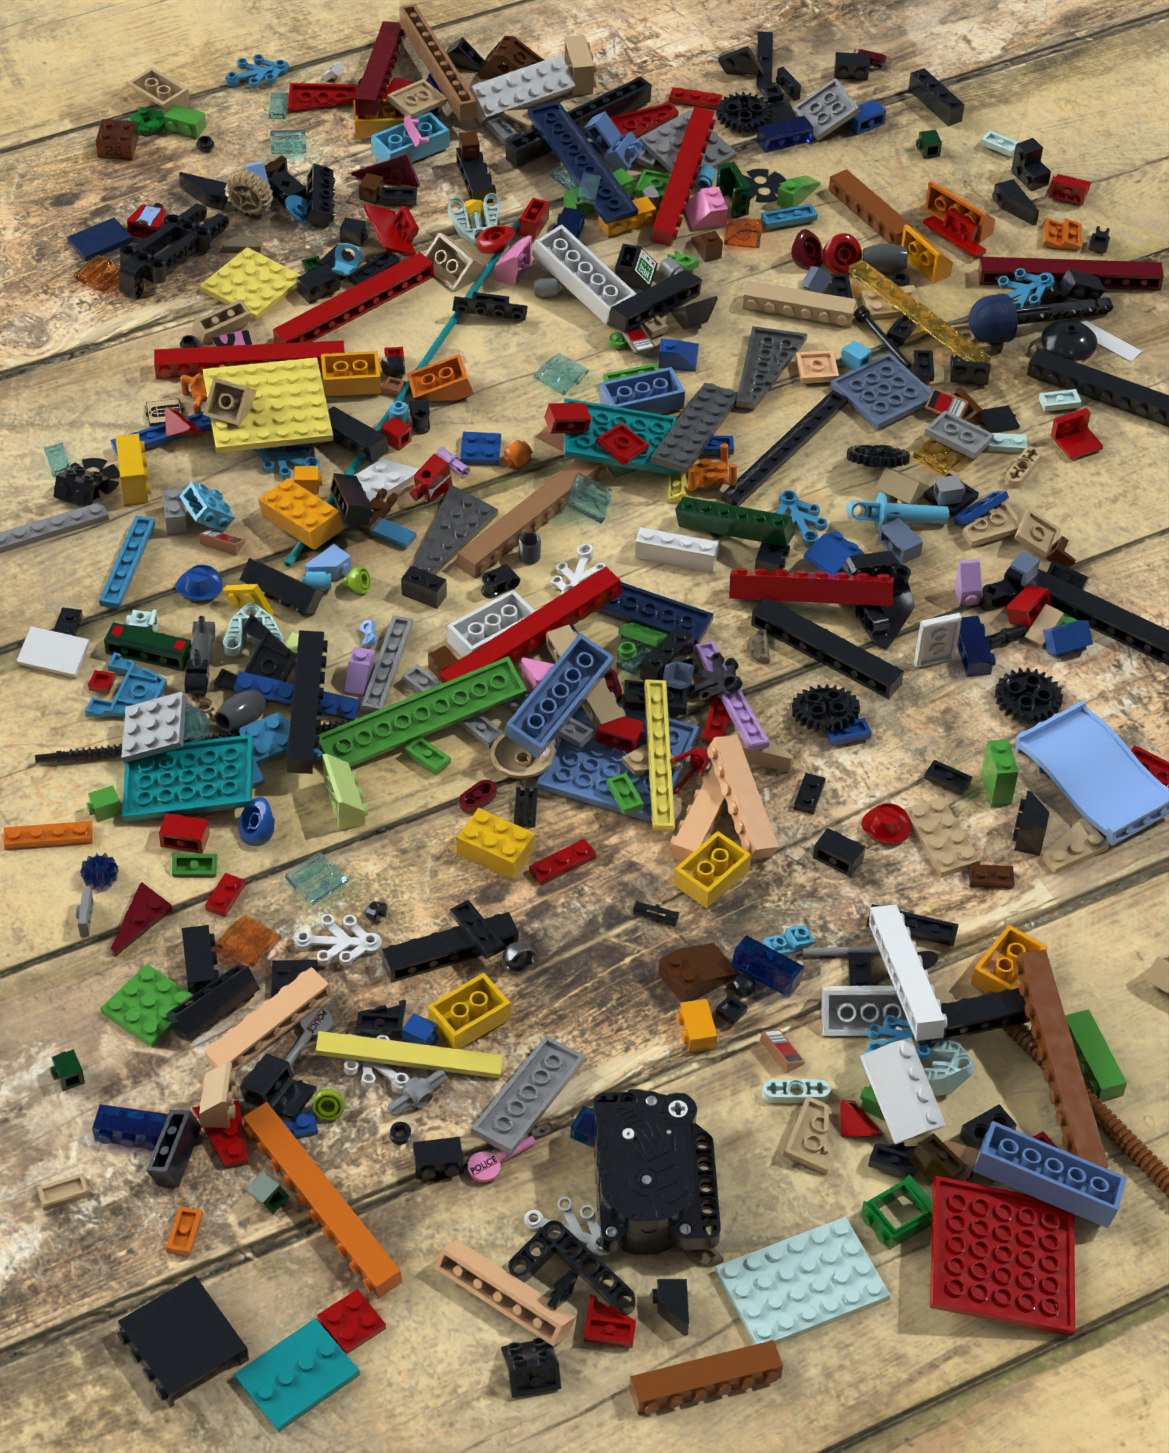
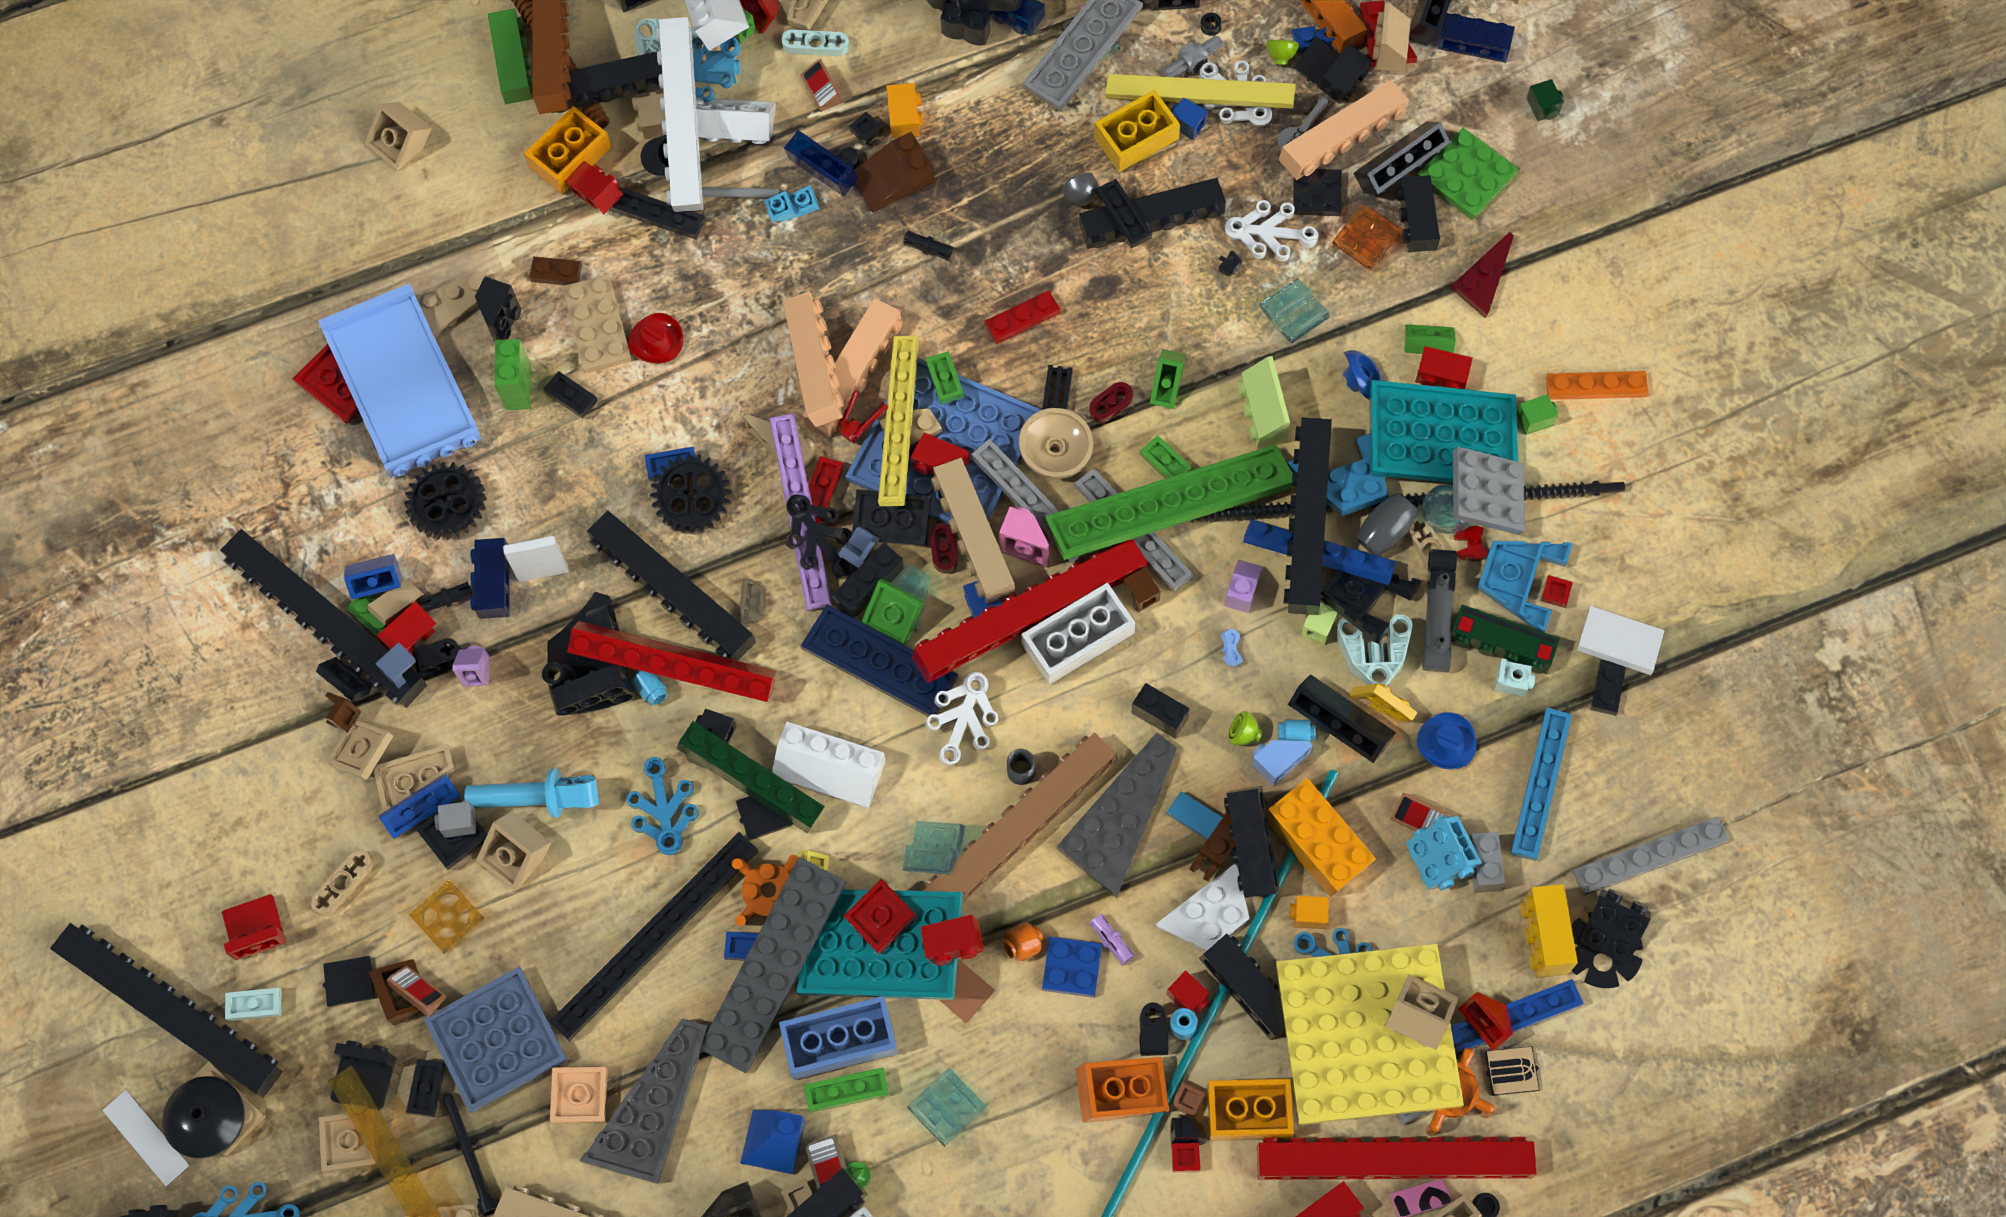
camera: 170 degrees left, 20 degrees up
(57, 458) = (1652, 980): clear light blue tile -> none
(84, 912) = (1546, 277): light grey plate -> none
(99, 871) = (1543, 326): clear blue gear -> none
(225, 894) = (1394, 298): red plate -> none
(381, 1021) = (1225, 137): black wing -> none
(387, 664) = (1209, 597): light grey plate -> none
(428, 816) = (1167, 378): none -> bright green slope
(432, 479) = (1142, 891): red torso -> none
(495, 843) = (1095, 333): yellow brick -> none
(500, 580) = (1060, 721): black piece -> none
(558, 695) = (1008, 475): medium blue brick -> none
(627, 651) = (917, 576): bright green plate -> none
(712, 869) = (859, 279): yellow brick -> none
(809, 793) = (732, 388): black plate -> none
(831, 552) = (632, 722): blue slope -> none
(839, 852) = (715, 303): black brick -> none
(855, 355) = (519, 1110): medium azure brick -> none
(859, 969) = (724, 165): black plate -> none
(878, 456) = (539, 913): black gear -> none
(901, 329) = (438, 1168): black plate -> none
(901, 540) = (537, 751): sand blue brick -> none
(959, 434) = (413, 932): light grey plate -> none
(974, 932) = (594, 187): none -> red brick
(996, 317) = (299, 1149): piece -> none
(1008, 443) = (349, 931): light aqua plate -> none

